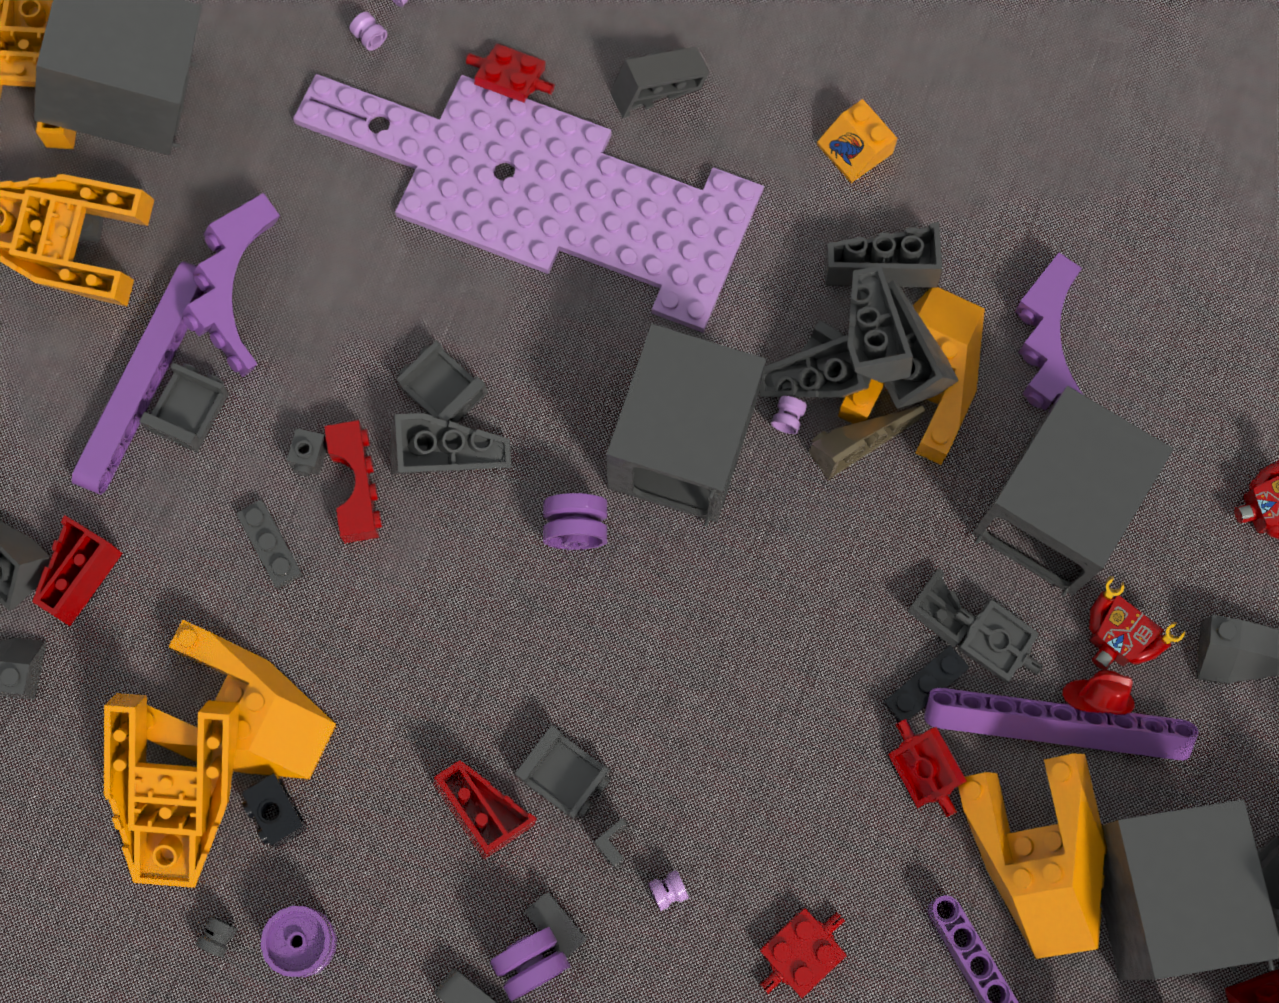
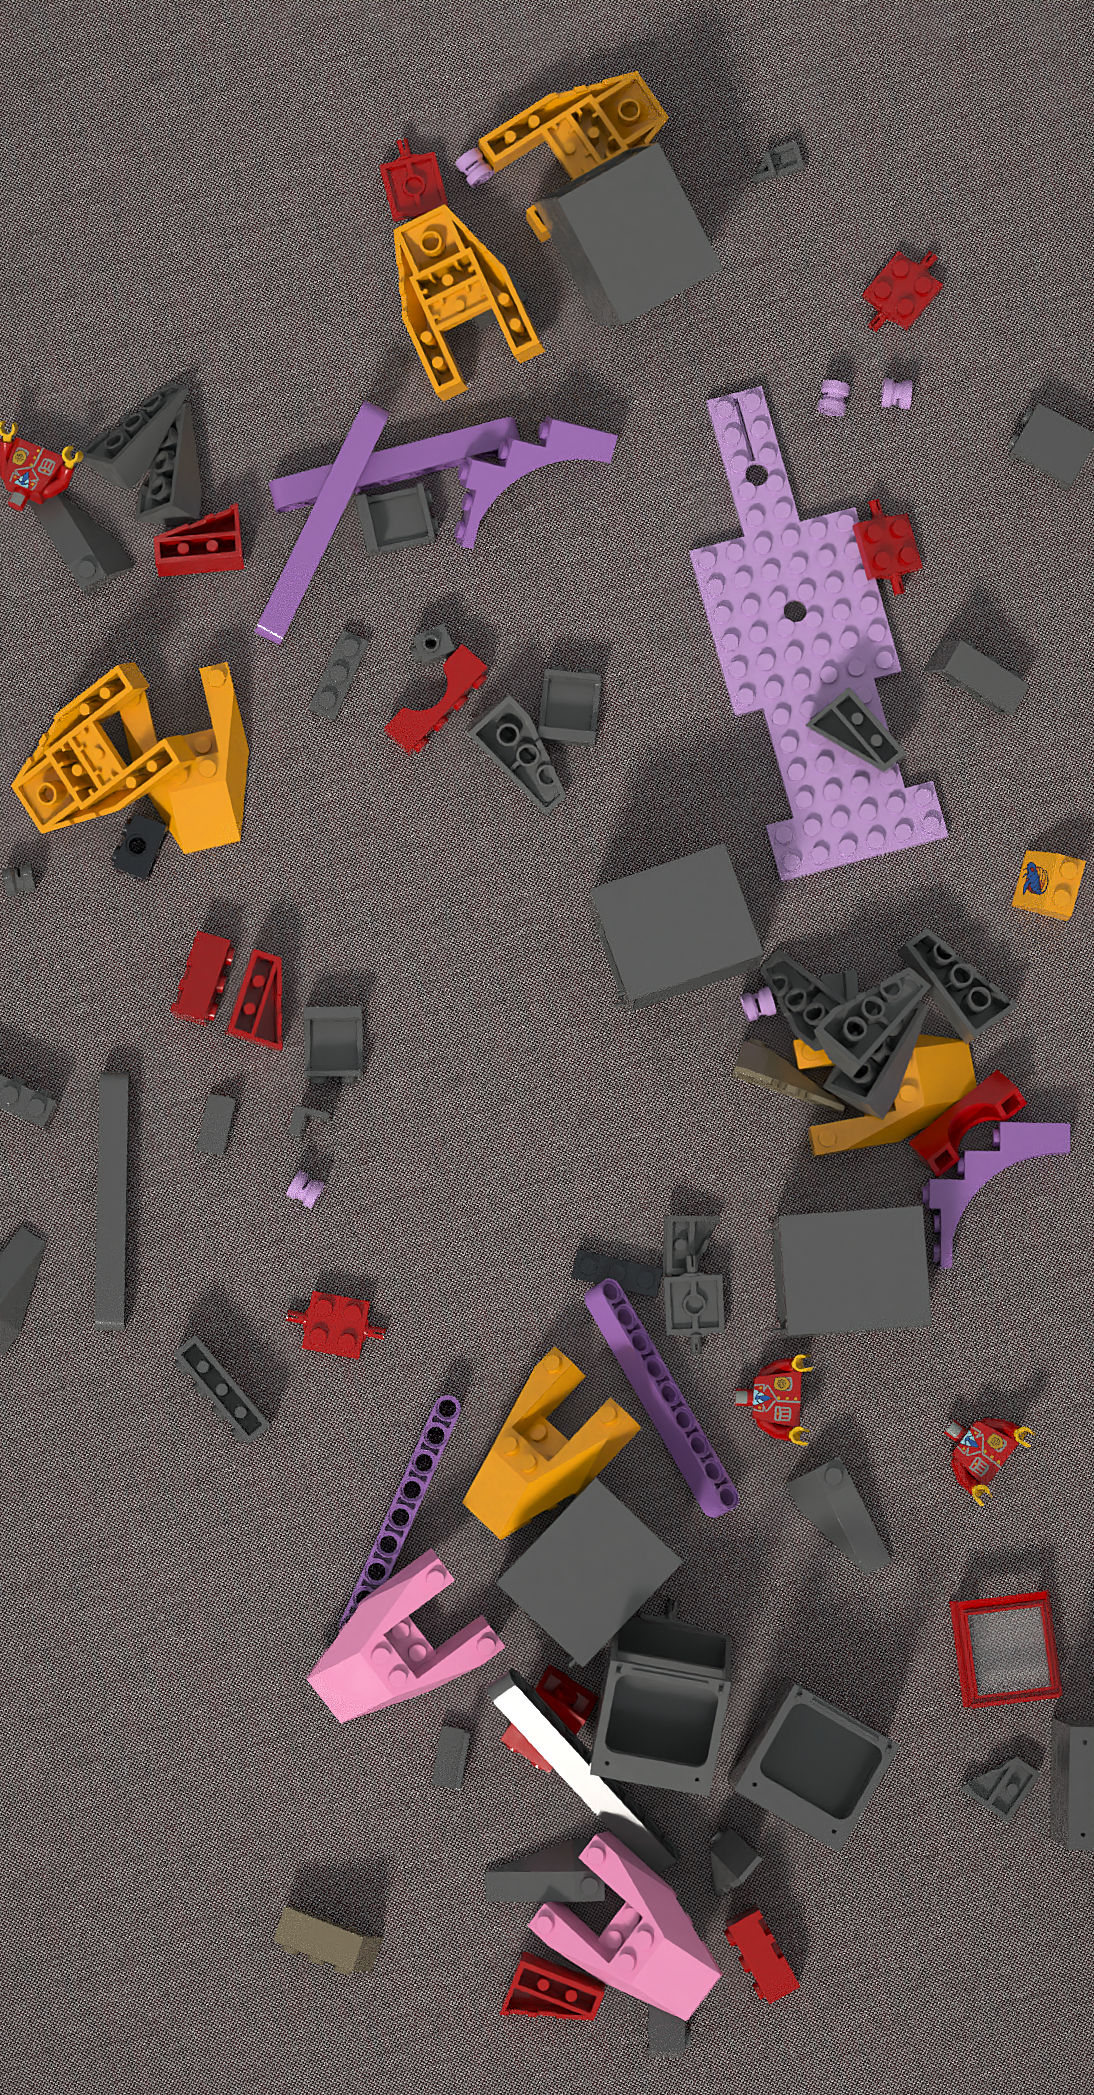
camera: 50 degrees right, 10 degrees up
(137, 461) = (322, 522): none -> medium lavender beam
(281, 935) = (55, 927): medium lavender wheel -> none
(425, 841) = (203, 979): none -> red wedge
(529, 962) = (173, 1125): medium lavender wheel -> none
(575, 521) = (531, 904): medium lavender wheel -> none
(636, 183) = (858, 731): none -> dark grey wedge
(927, 767) = (546, 1317): red plate -> none
(996, 296) = (991, 1100): none -> red arch
(1101, 694) = (711, 1415): red piece -> none

